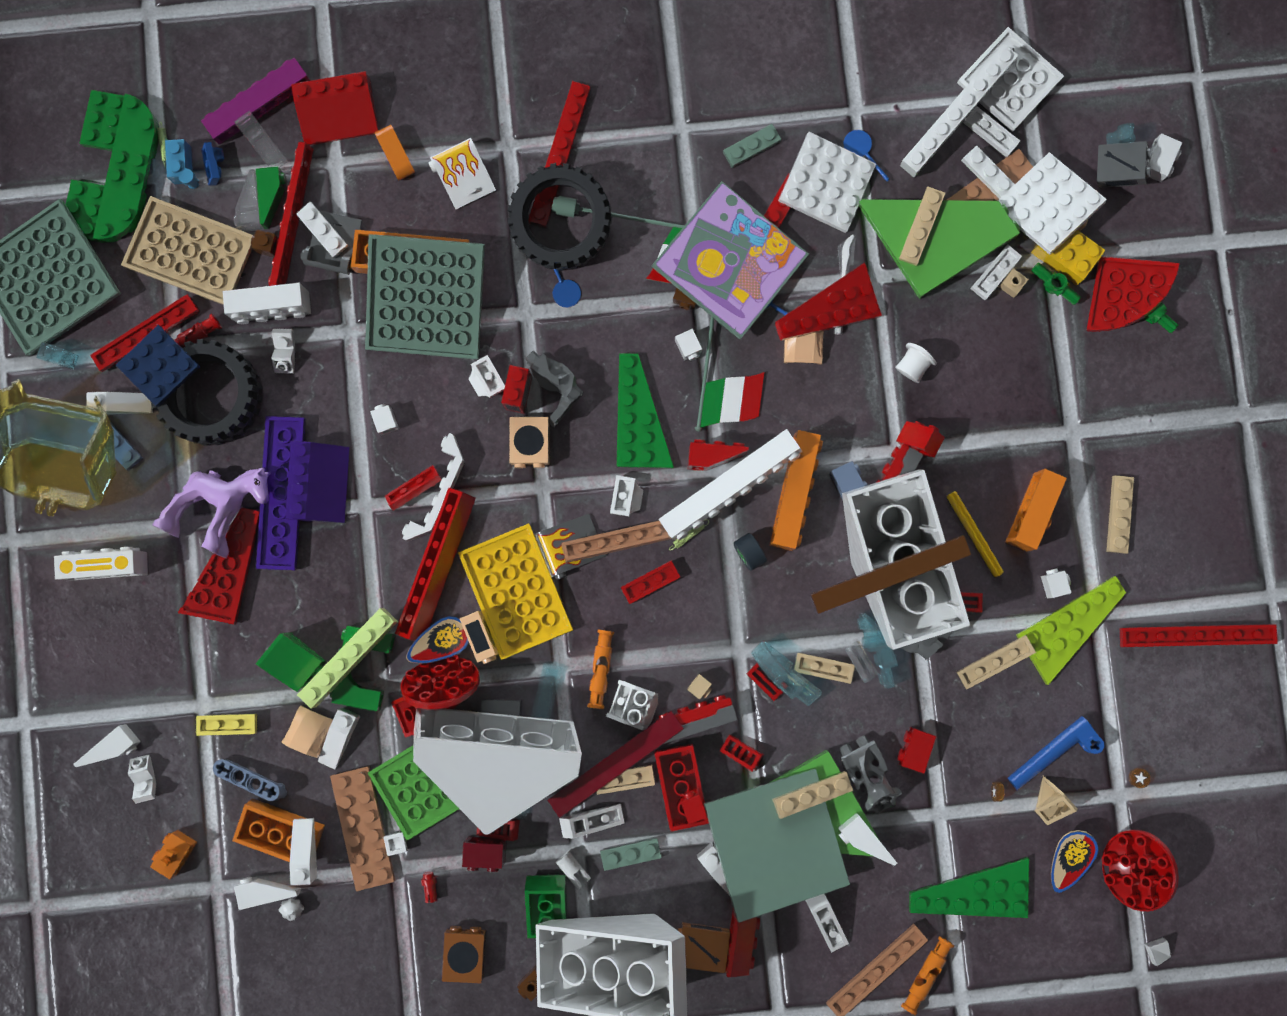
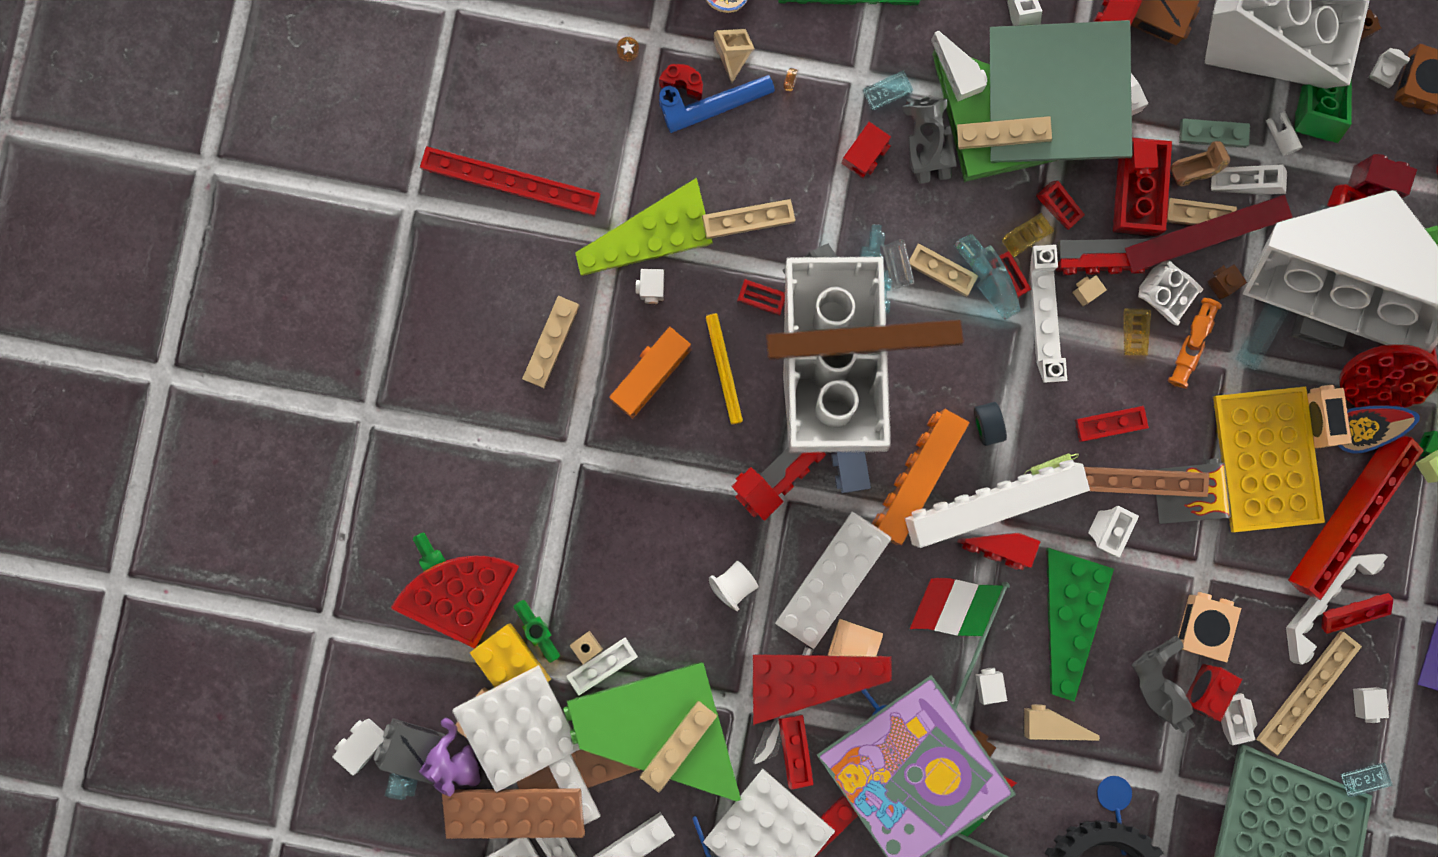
camera: 170 degrees left, 0 degrees up
(373, 360) = (1366, 779): none -> clear light blue tile
(435, 414) = (1308, 693): none -> tan plate
(499, 956) = (1388, 67): none -> white bracket
(589, 728) = (1226, 281): none -> reddish brown brick
(632, 329) = (1048, 725): none -> tan slope
(637, 820) = (1201, 165): none -> medium nougat animal
(655, 681) = (1144, 331): none -> clear yellow slope
(728, 656) = (1045, 315): none -> white slope
(774, 708) = (1015, 242): none -> clear yellow slope
(825, 251) = (796, 751): none -> red plate
(840, 389) = (833, 580): none -> white plate
(913, 808) = (888, 90): none -> clear light blue tile
(1029, 141) = (514, 813): none -> nougat plate
(1090, 766) = (683, 77): none -> red cylinder
(1095, 155) = (442, 770): none -> medium lavender animal

